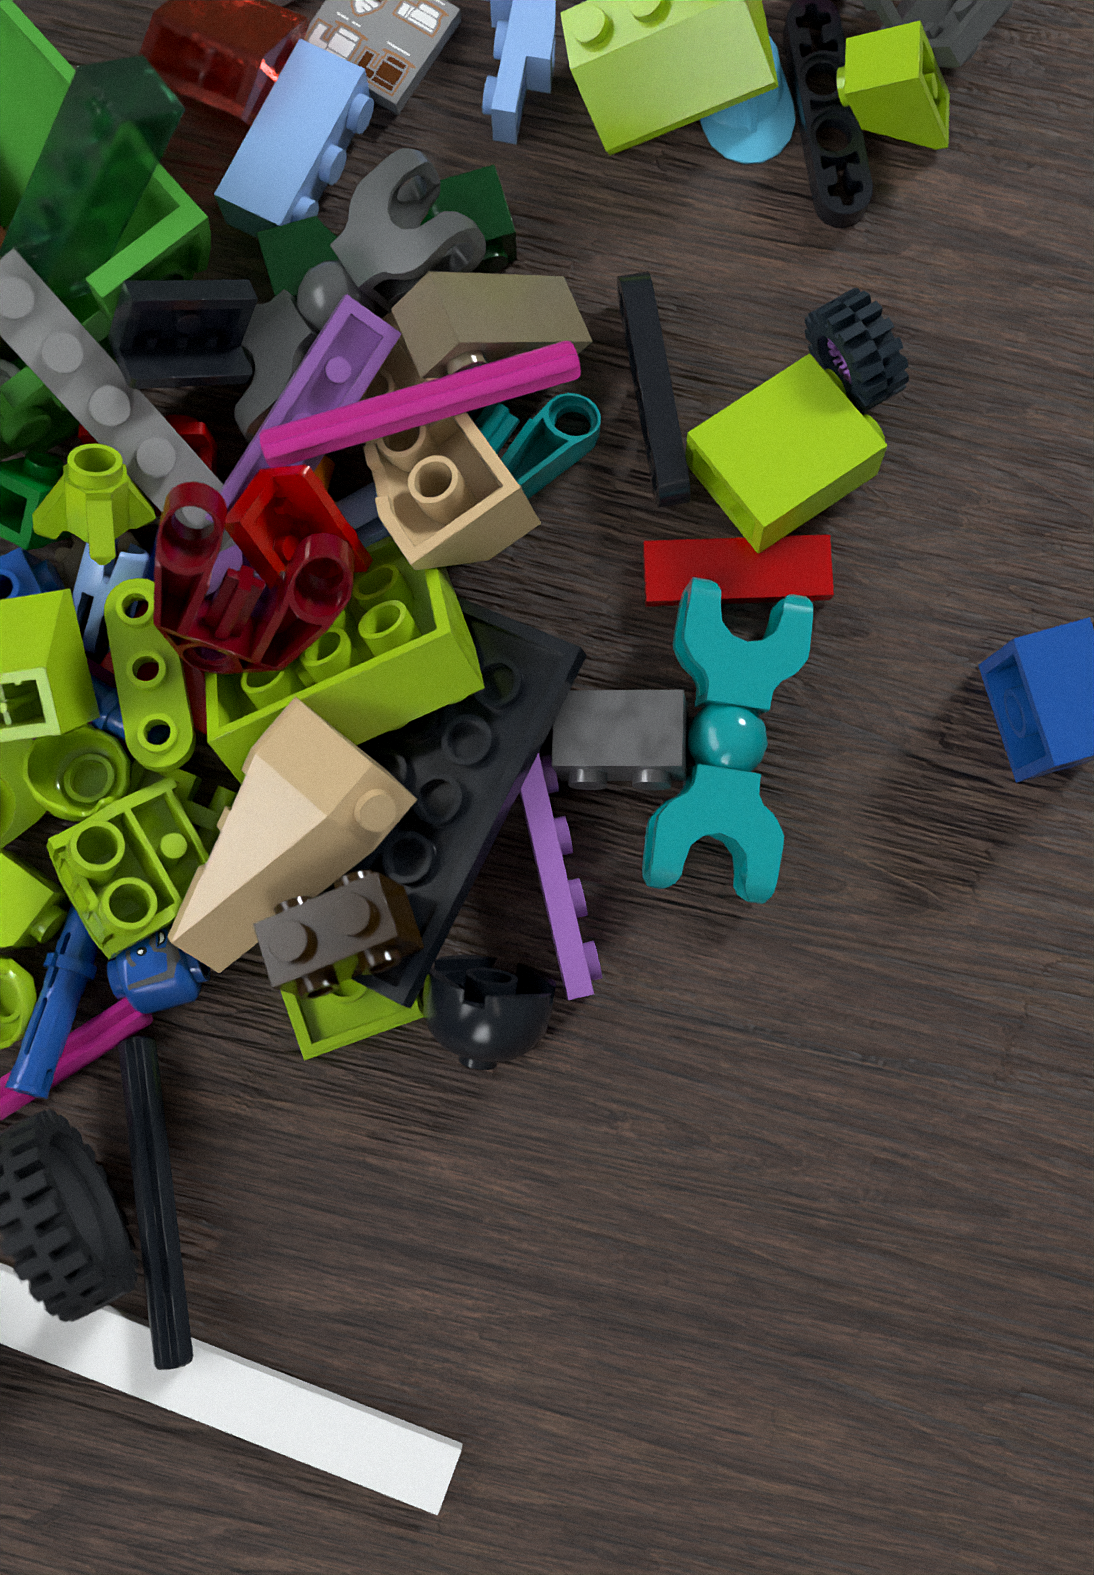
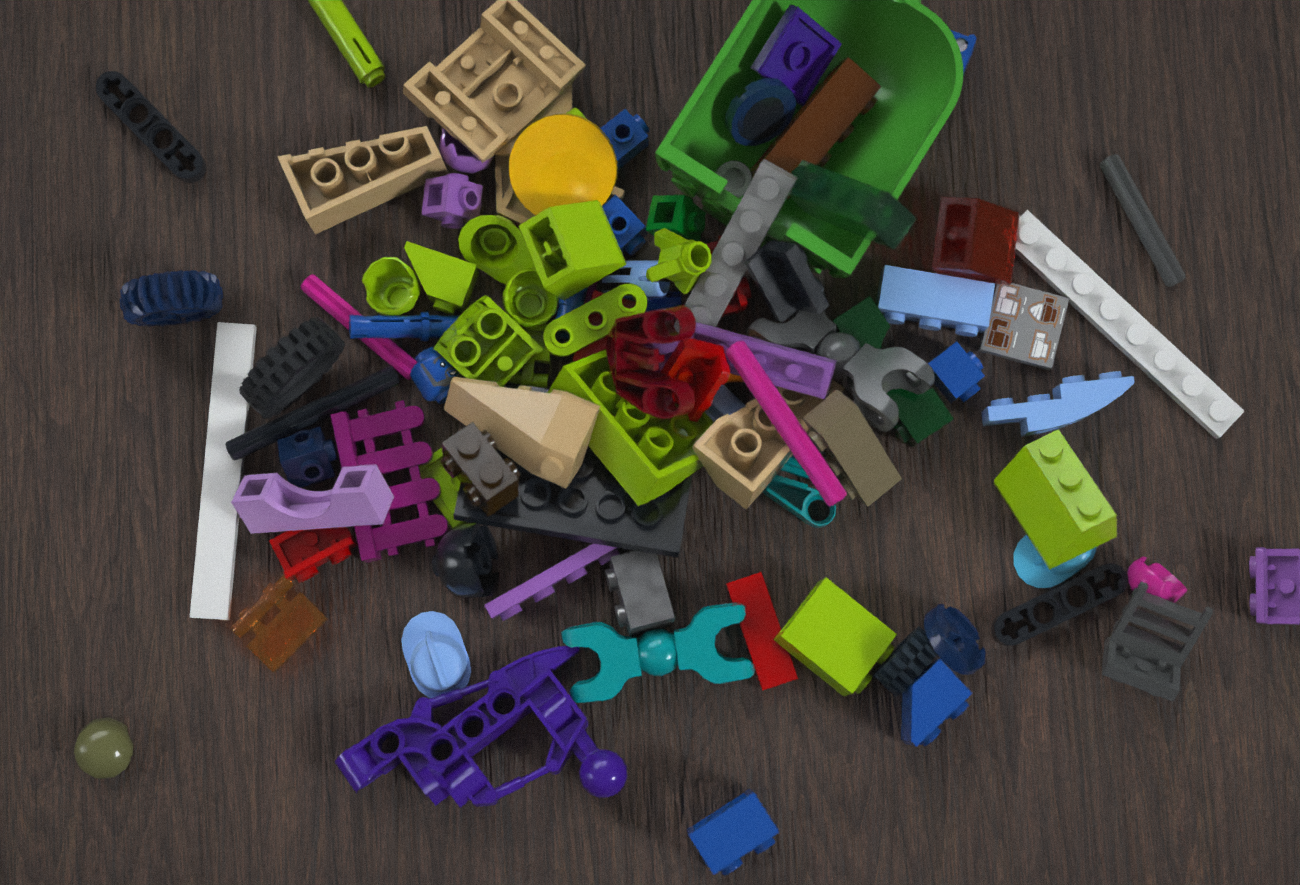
camera: 70 degrees right, 0 degrees up
(227, 1231) = (307, 457): none -> dark blue brick
(276, 1116) = (409, 456): none -> magenta fence
(289, 1313) = (275, 505): none -> lavender arch
(378, 1262) = (305, 550): none -> red bracket
(429, 130) = (957, 373): none -> blue brick
(512, 1351) = (287, 631): none -> clear orange plate
(623, 1107) = (435, 654): none -> light blue piece
(653, 389) = (852, 550): black beam -> none
(725, 961) = (534, 690): none -> dark purple piece
(836, 272) = (954, 639): none -> dark blue tile
(896, 85) = (1078, 641): lime slope -> none
(943, 331) = (929, 701): none -> blue slope

